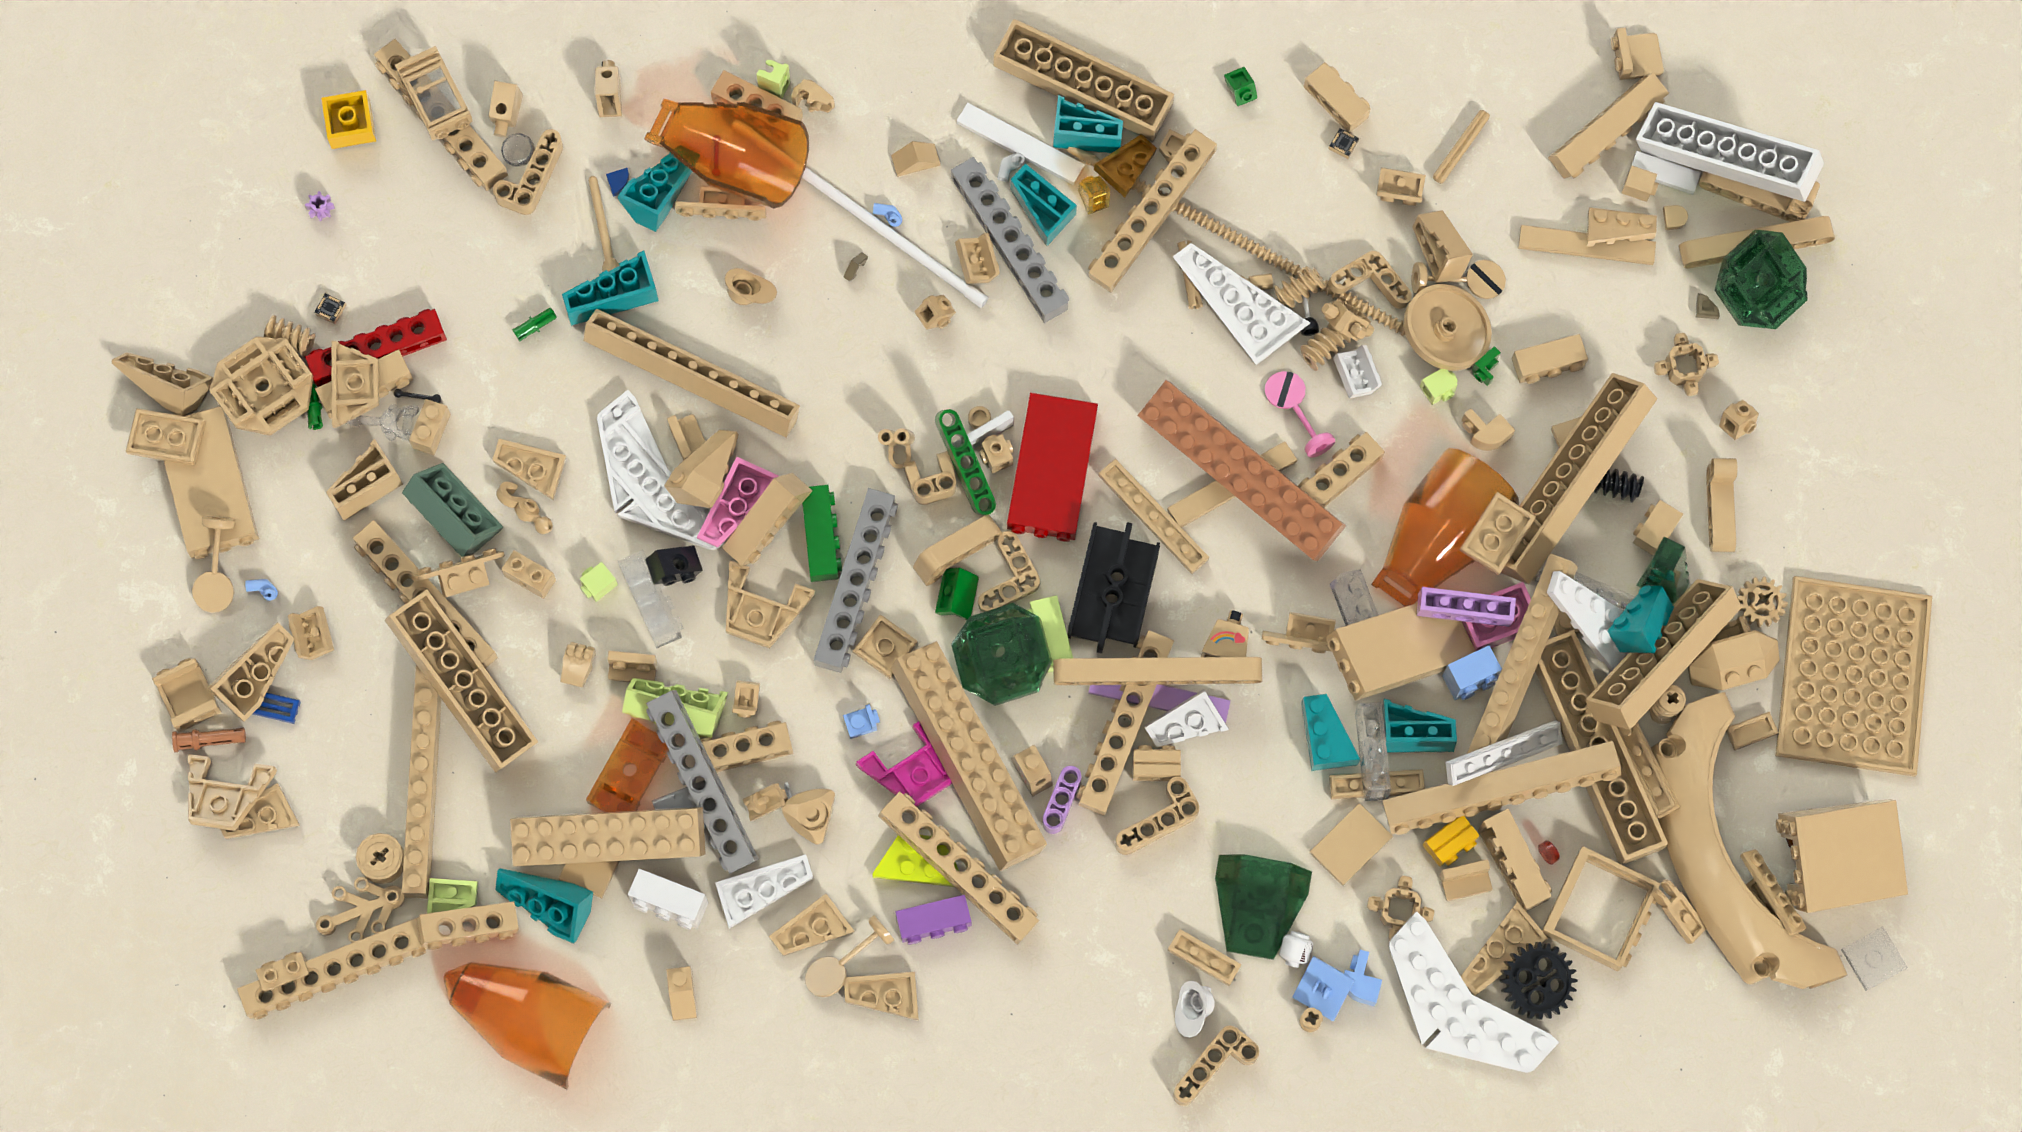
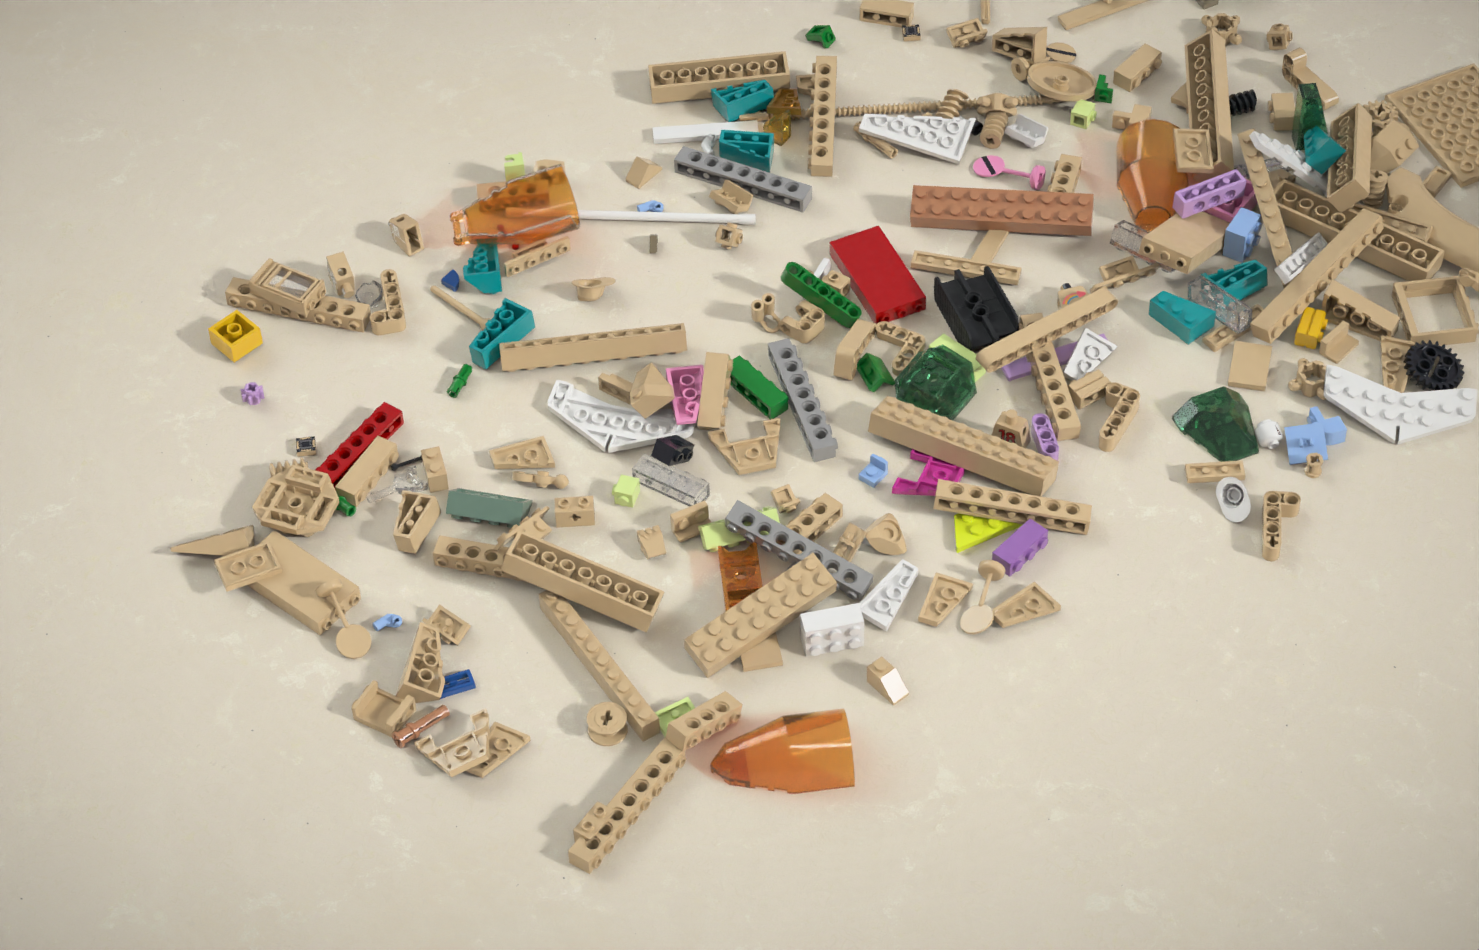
camera: 30 degrees left, 25 degrees down
(353, 383) = (362, 465): tan wing -> none
(364, 908) = (616, 761): tan plant -> none
(555, 903) = (749, 683): teal wedge -> none
(883, 645) = (852, 426): tan tile -> none
(1370, 271) = (986, 79): tan beam -> none
(1549, 852) = (1377, 298): clear red tile -> none

